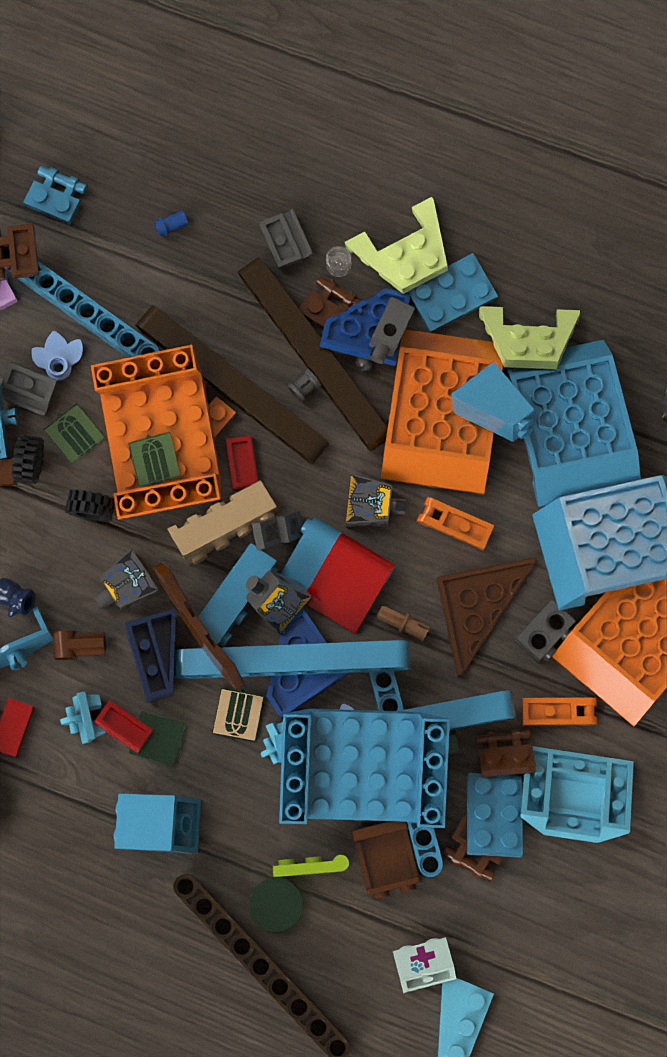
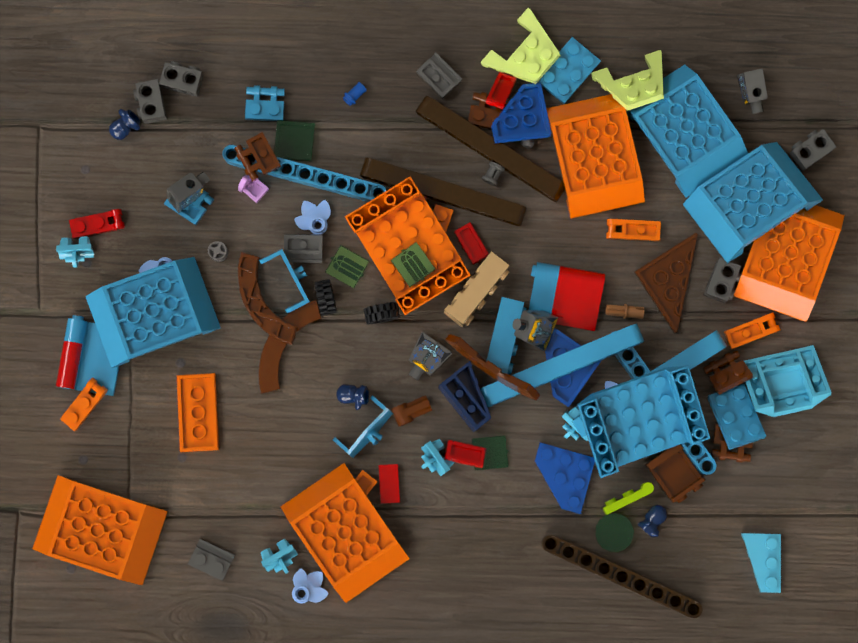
camera: 25 degrees left, 5 degrees up
(73, 253) = (294, 140): none -> clear green tile
(157, 823) = (514, 509): dark azure slope -> none
(238, 714) = (537, 416): piece -> none
(243, 805) = (565, 474): none -> blue plate
(277, 529) = (515, 280): dark grey slope -> none
(333, 907) = (653, 519): none -> dark blue animal
(338, 255) = (481, 73): clear wheel -> none
(355, 285) = (501, 90): none -> red tile
(371, 503) = (571, 238): torso -> none
(390, 329) = (540, 114): dark grey torso -> none
(424, 964) = (728, 533): light aqua brick -> none
(494, 404) = (634, 140): dark azure slope -> none

